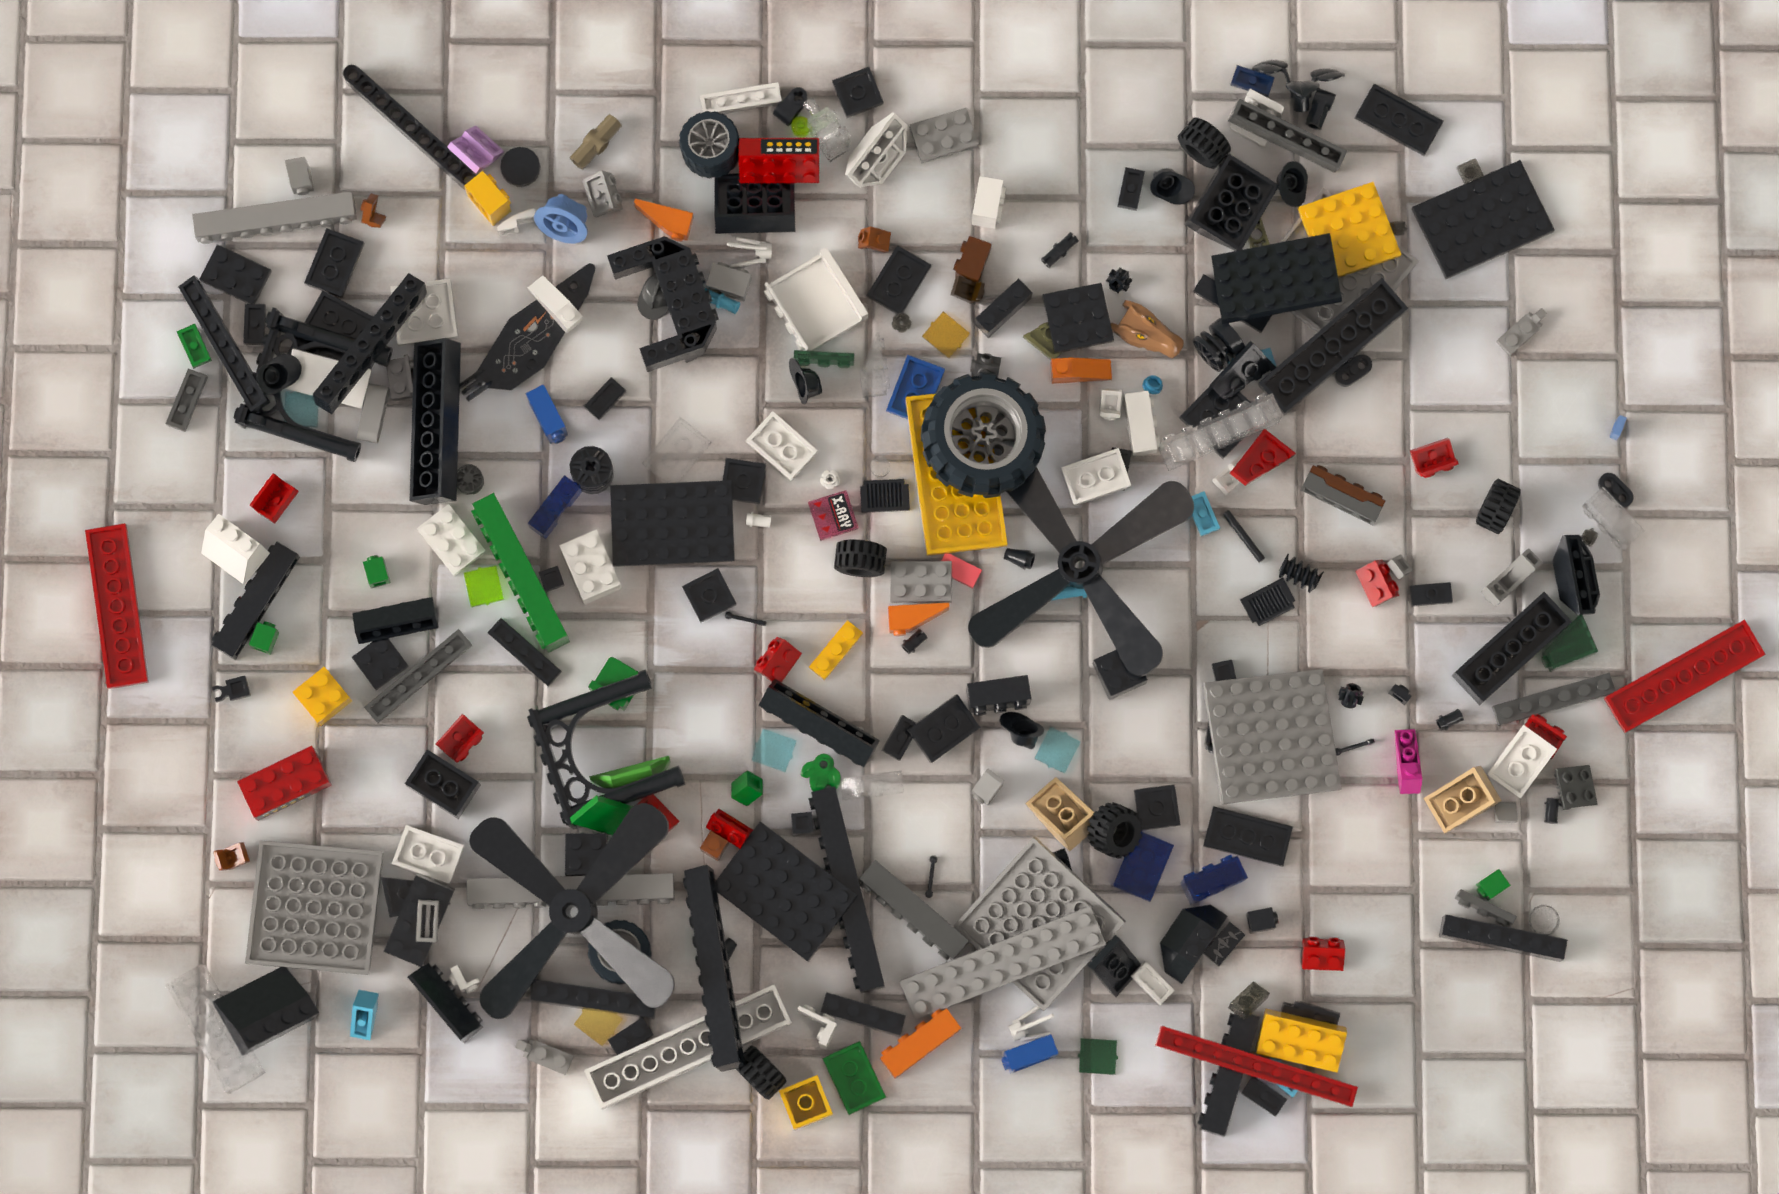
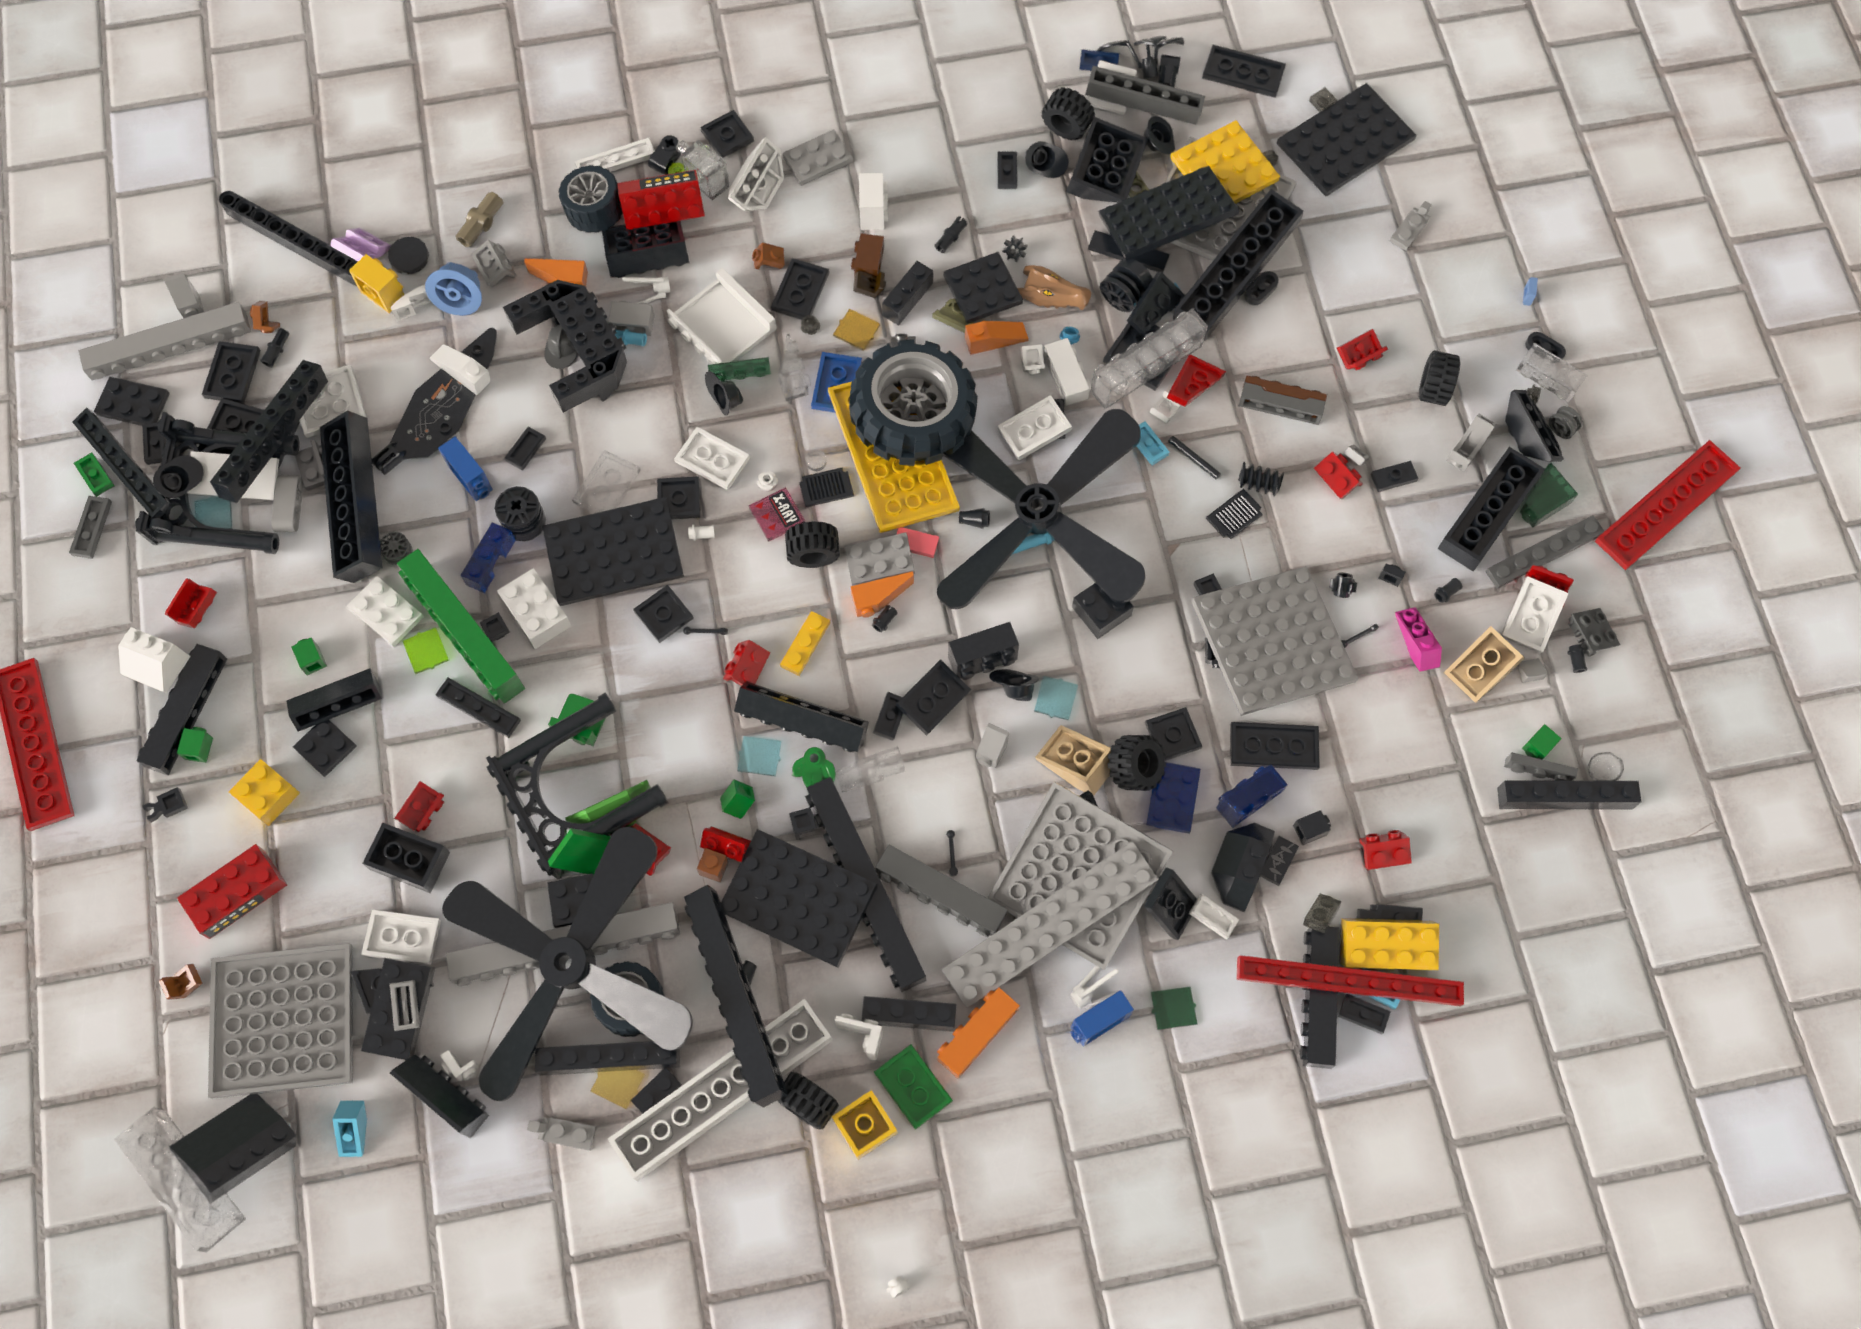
camera: 10 degrees left, 10 degrees down
(379, 244) = (275, 348): none -> black axle
(418, 676) = (366, 753): dark grey plate -> none
(1610, 574) = (1564, 422): none -> dark grey wheel

